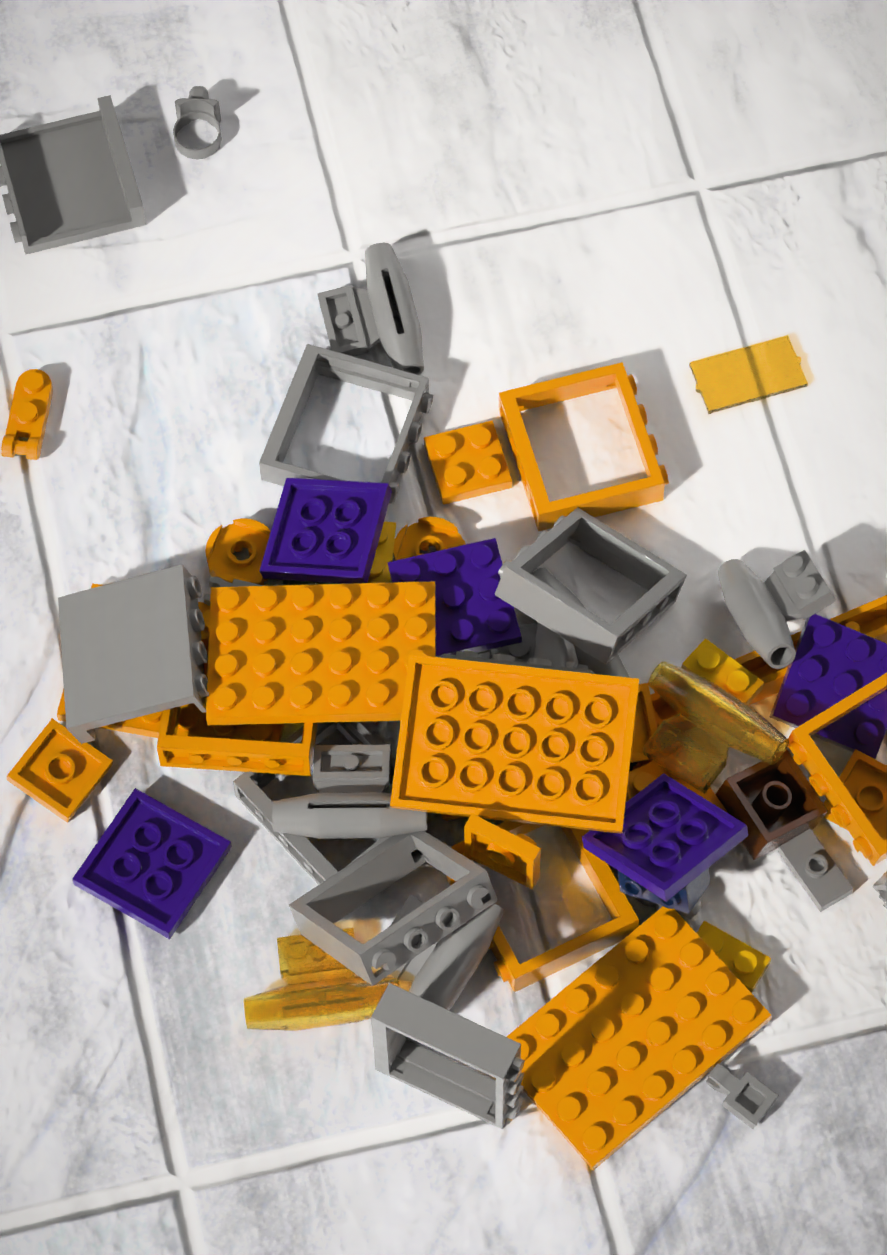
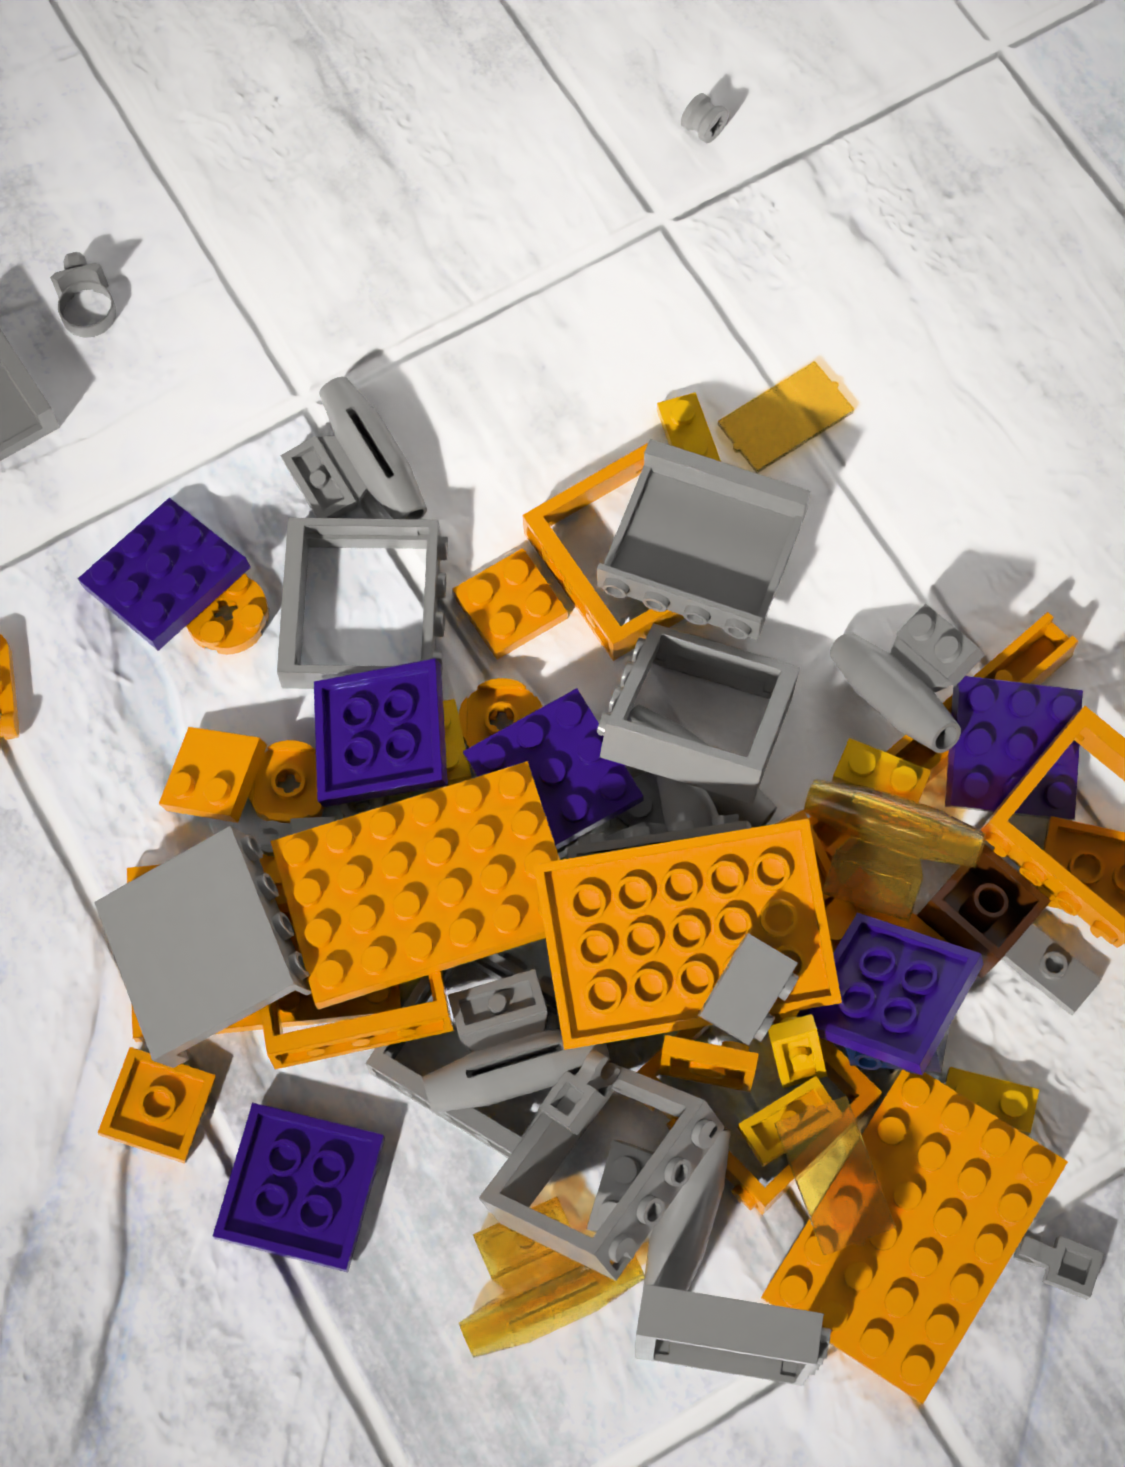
camera: 15 degrees left, 5 degrees up
(183, 529) = (213, 774): none -> light orange plate
(193, 361) = (164, 573): none -> dark purple plate
(234, 388) = (244, 627): none -> light orange plate
(391, 847) = (577, 1096): none -> light grey plate
(548, 797) = (749, 990): none -> light grey brick
(555, 918) = (760, 1128): none -> yellow plate
(576, 862) = (797, 1050): none -> yellow plate
(577, 968) = (834, 1175): none -> clear yellow piece
(640, 451) = (704, 540): none -> light grey panel
(661, 368) = (686, 425): none -> yellow plate
(761, 111) = (704, 117): none -> light grey wheel

